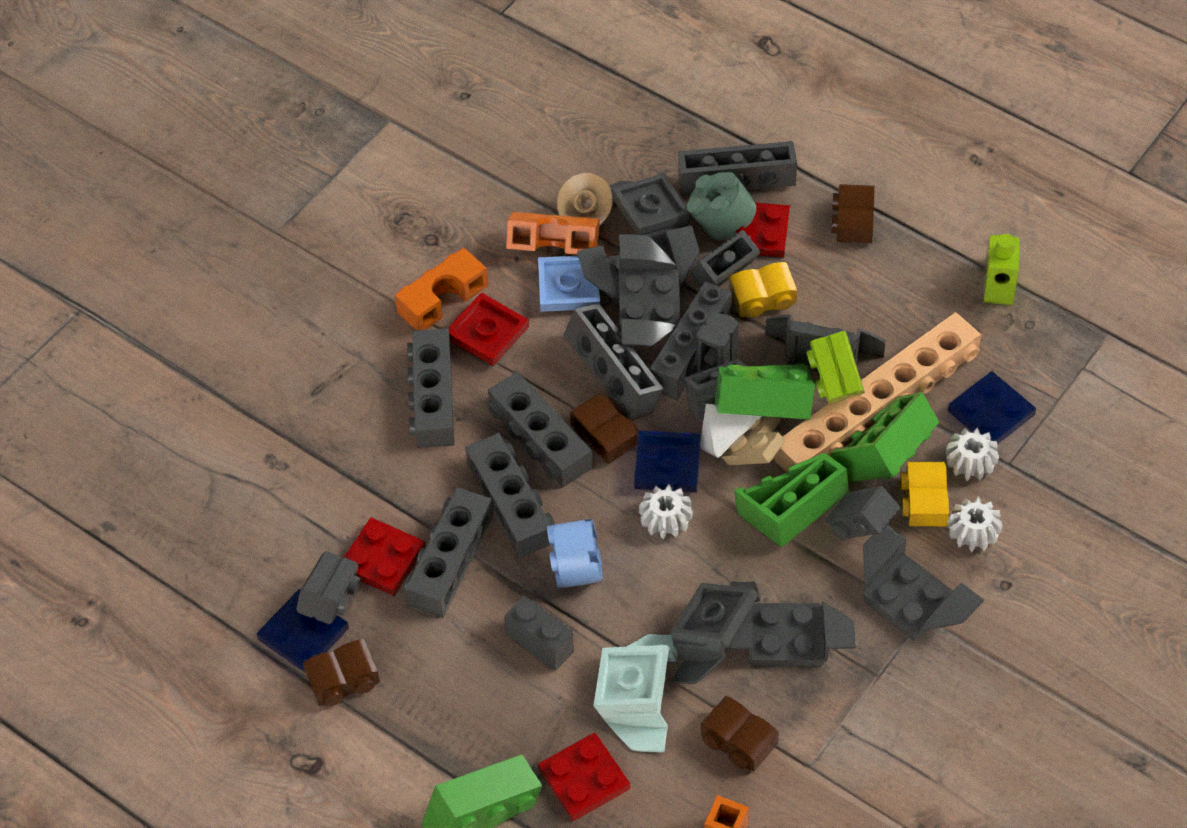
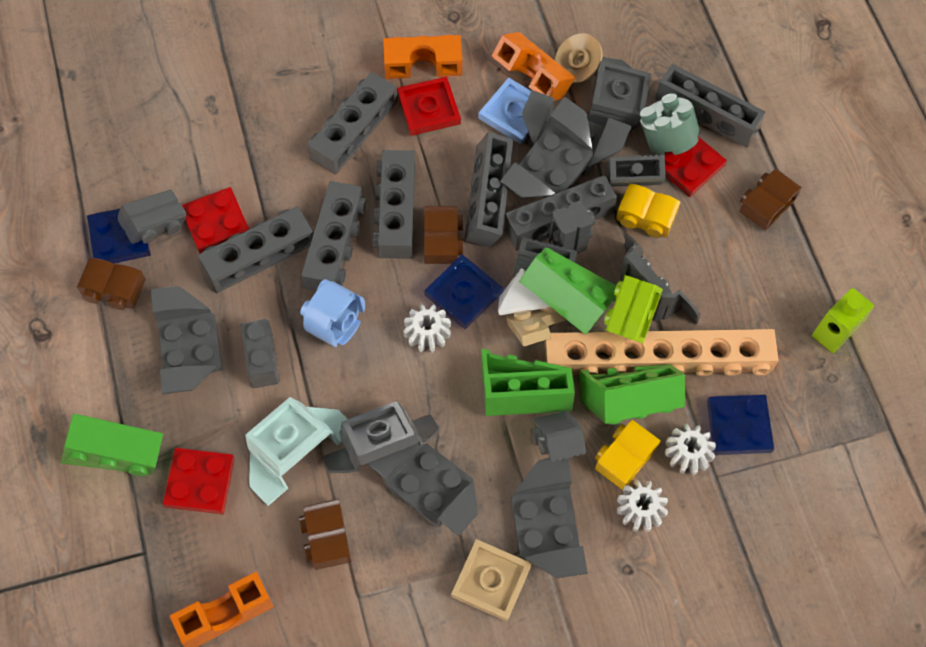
camera: 35 degrees right, 10 degrees up
(458, 670) = (186, 339): none -> dark grey piece
(908, 669) = (491, 580): none -> tan plate

